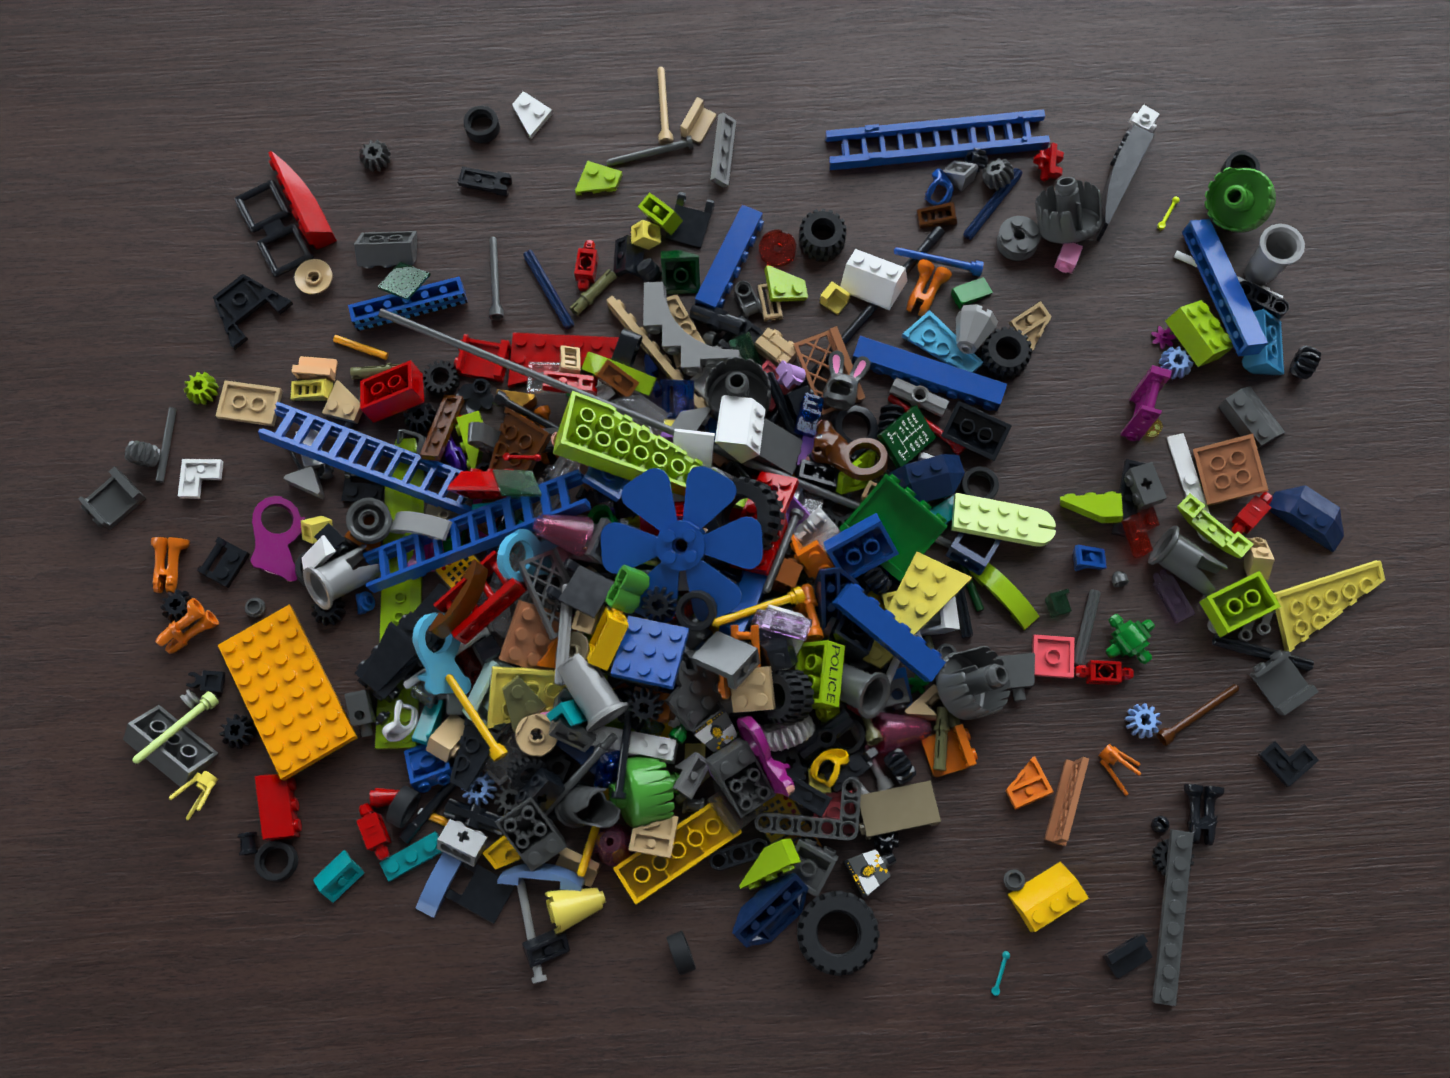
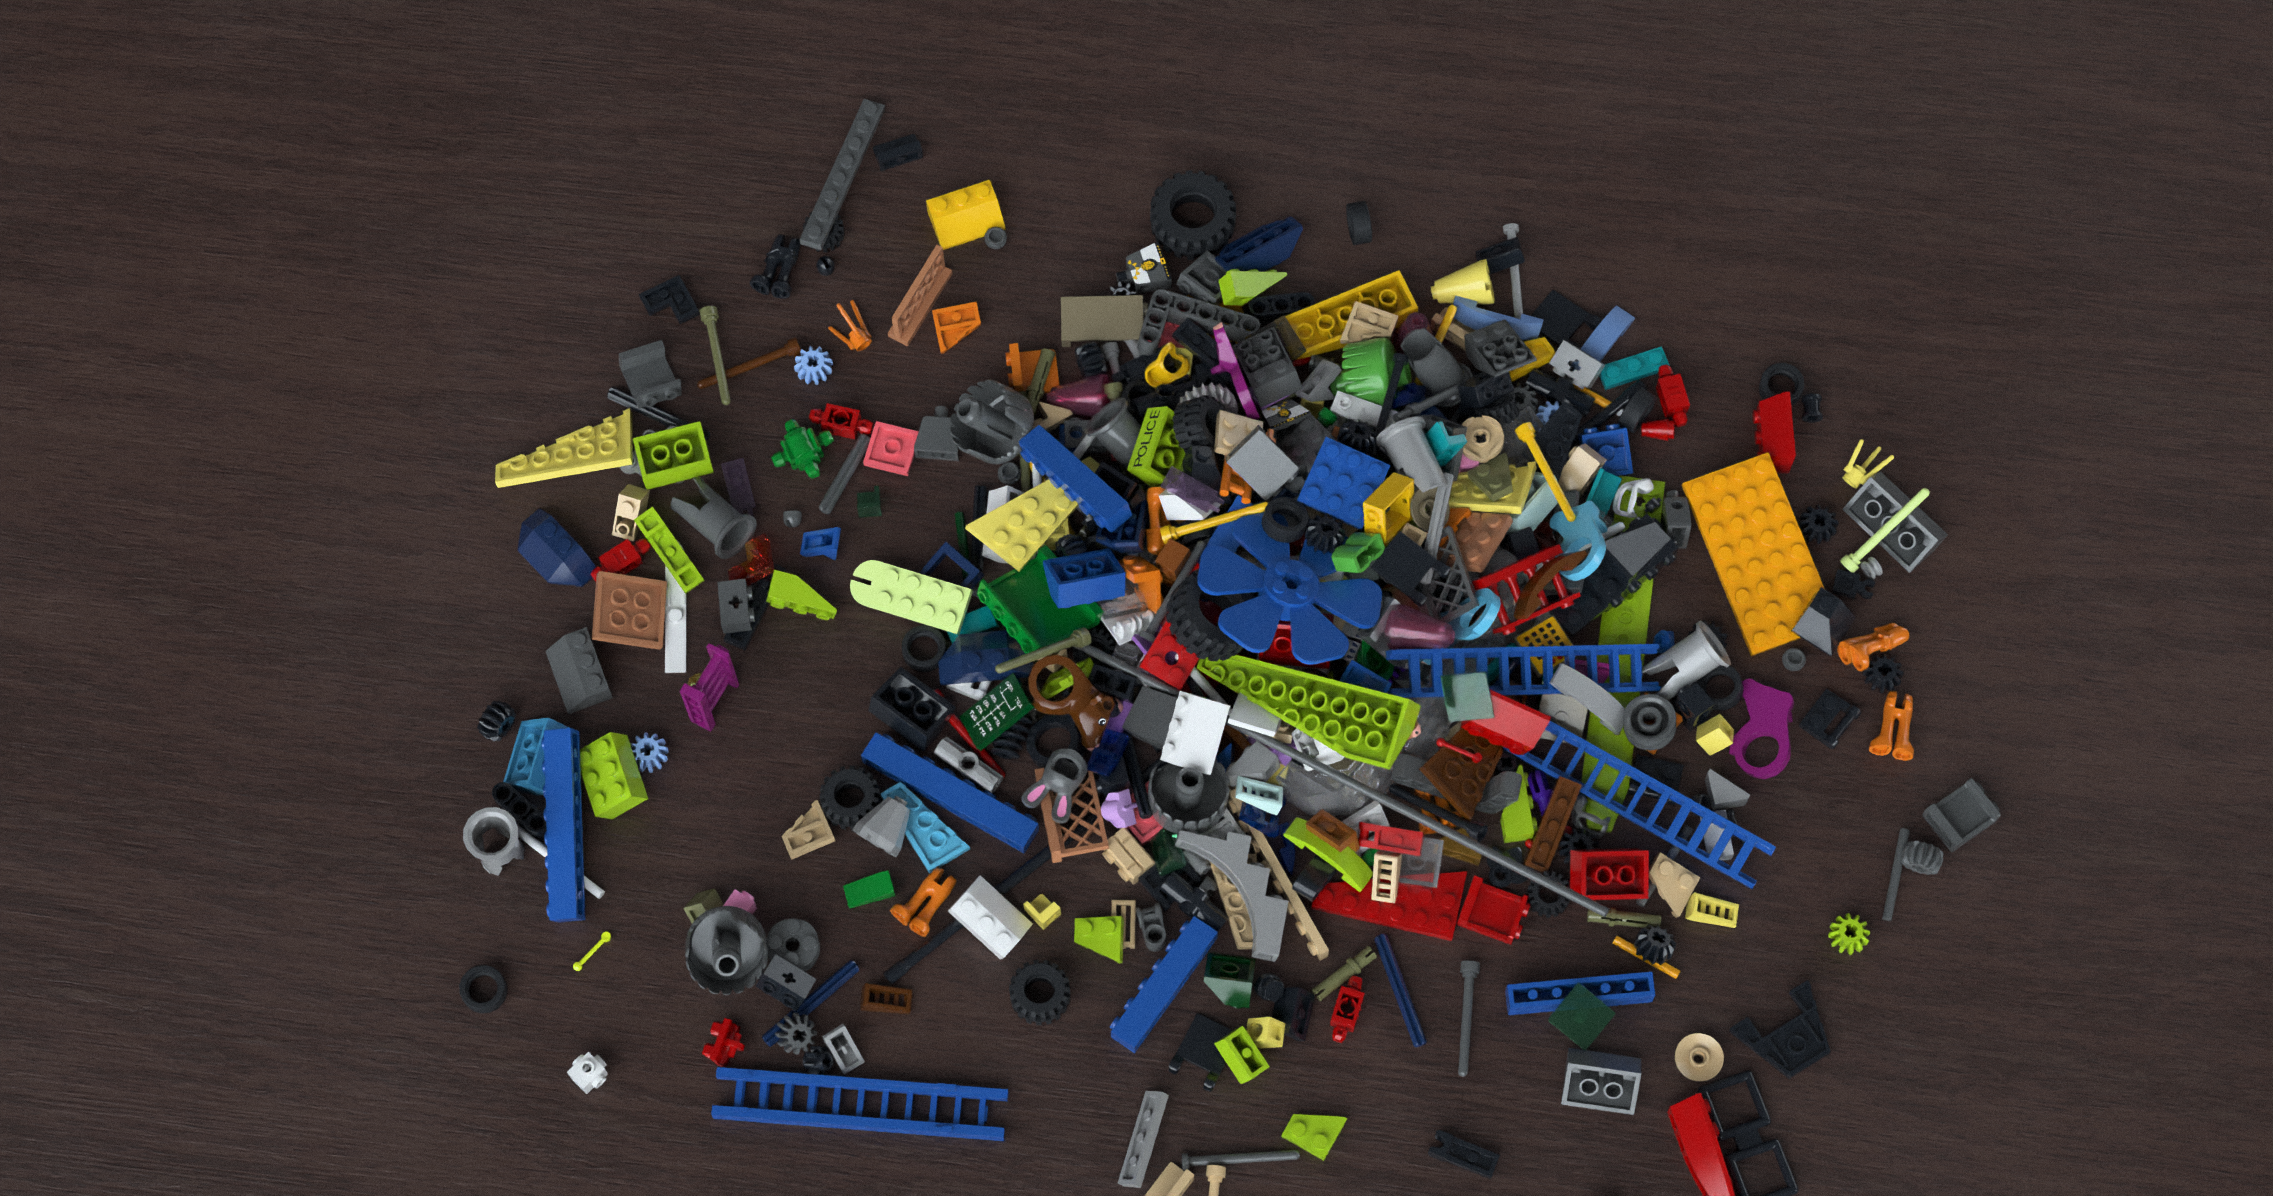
camera: 170 degrees left, 5 degrees down
(193, 473) = (1860, 830): white plate -> none
(229, 638) = (1824, 622): none -> black slope
(248, 403) = (1790, 905): tan plate -> none
(315, 368) = (1704, 937): light nougat panel -> none
(318, 553) = (1712, 681): white slope -> none
(338, 876) = (1716, 361): teal panel -> none
(346, 350) = (1654, 944): none -> black gear
(666, 405) = (1267, 790): none -> light aqua slope
(783, 240) = (1107, 979): clear red plate -> none
(852, 501) = (1079, 638): none -> olive piece
(942, 179) = (867, 1040): blue piece -> none
(973, 267) = (858, 918): blue piece -> none
(995, 990) = (1041, 144): teal hinge -> none
(1005, 203) = (785, 982): none -> black brick
(1008, 595) = (925, 522): lime slope -> none
(1094, 254) = (702, 902): none -> olive panel
(1124, 167) = (642, 997): slope -> none
(1163, 337) = (655, 793): magenta plant -> none
(1240, 199) = (507, 928): bright green piece -> none
(1247, 750) = (709, 316): none -> olive piece

